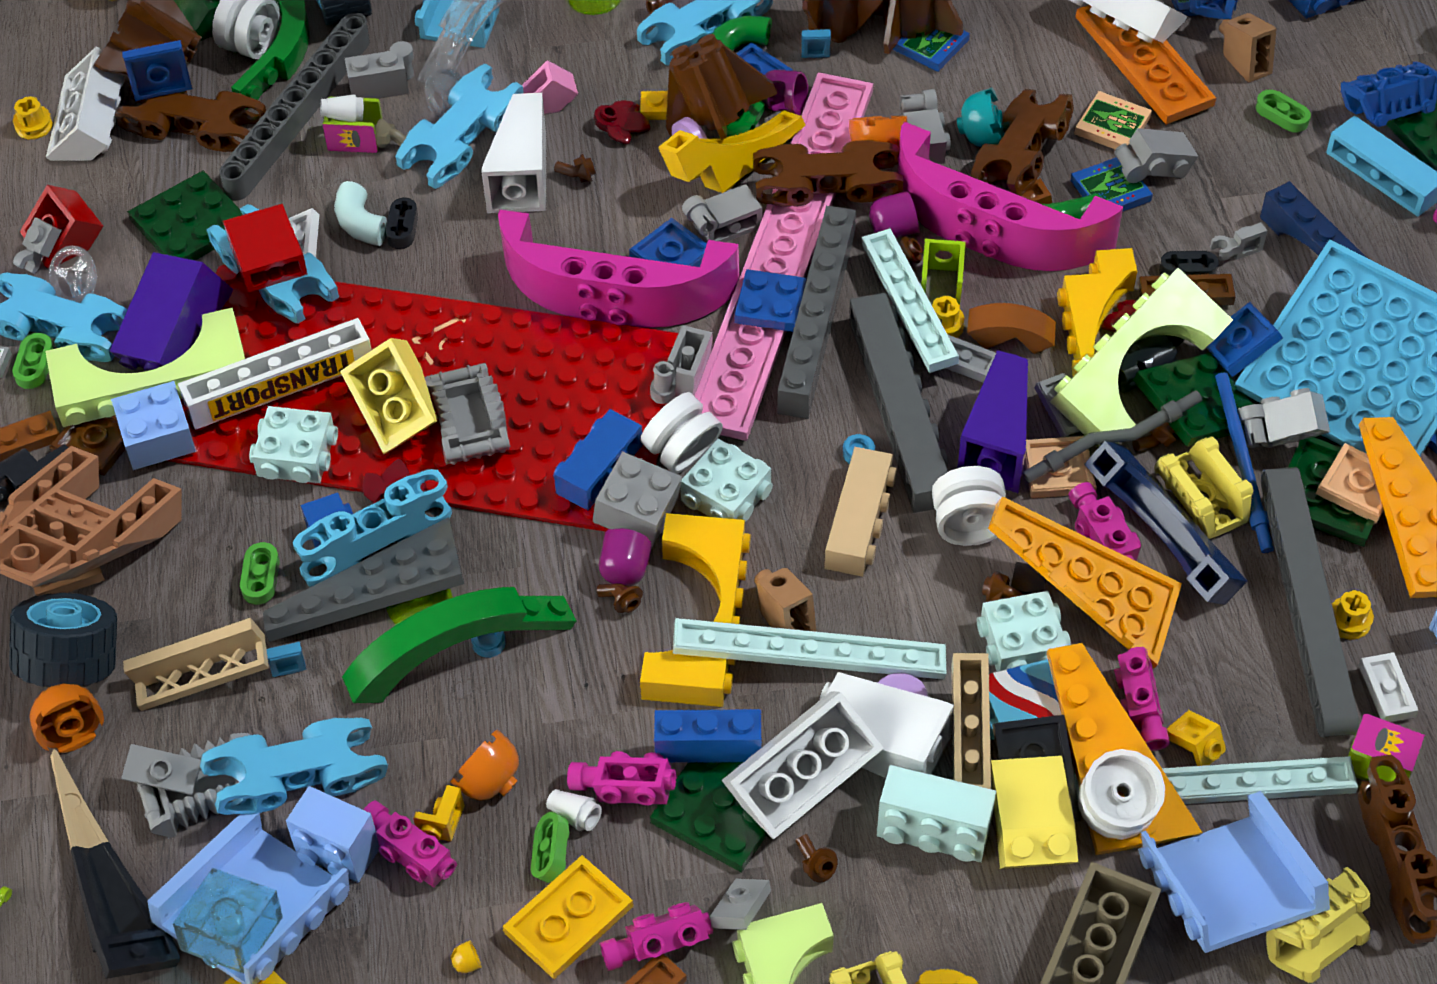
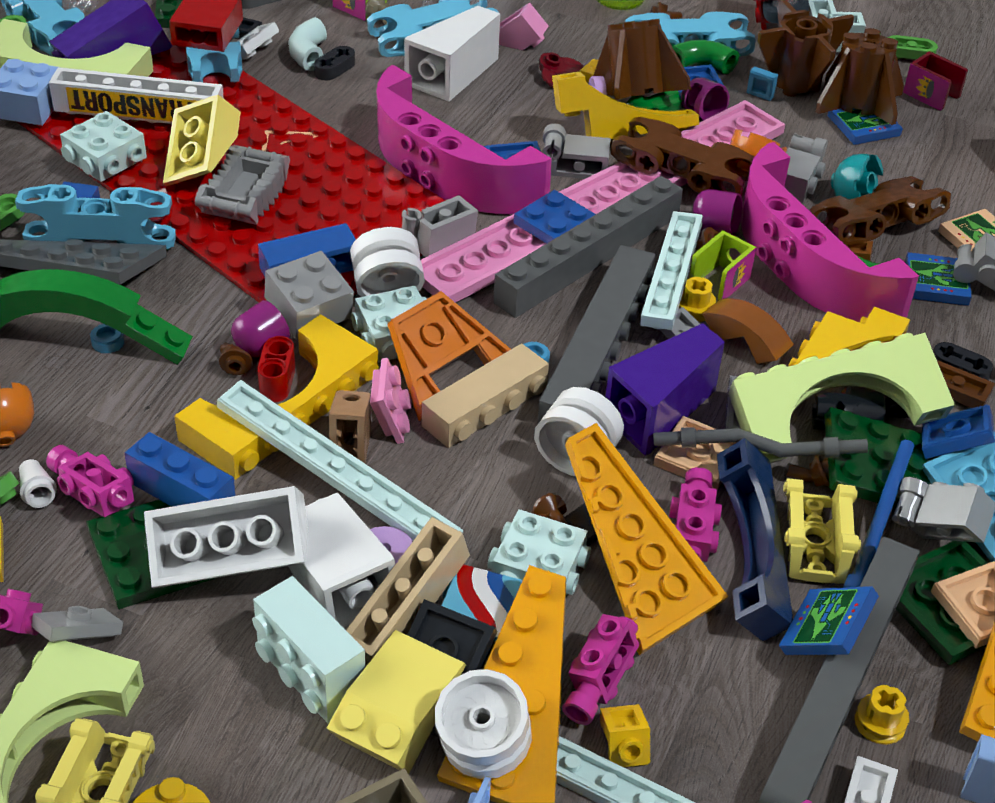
camera: 30 degrees right, 10 degrees down
(583, 168) = (497, 82): reddish brown plate -> none
(669, 585) = (276, 368): none -> red beam
(782, 487) = (435, 336): none -> orange wing
(796, 561) = (390, 401): none -> bright pink piece
(819, 863) = (183, 636): reddish brown plate -> none
(1277, 564) = (829, 621): none -> blue tile

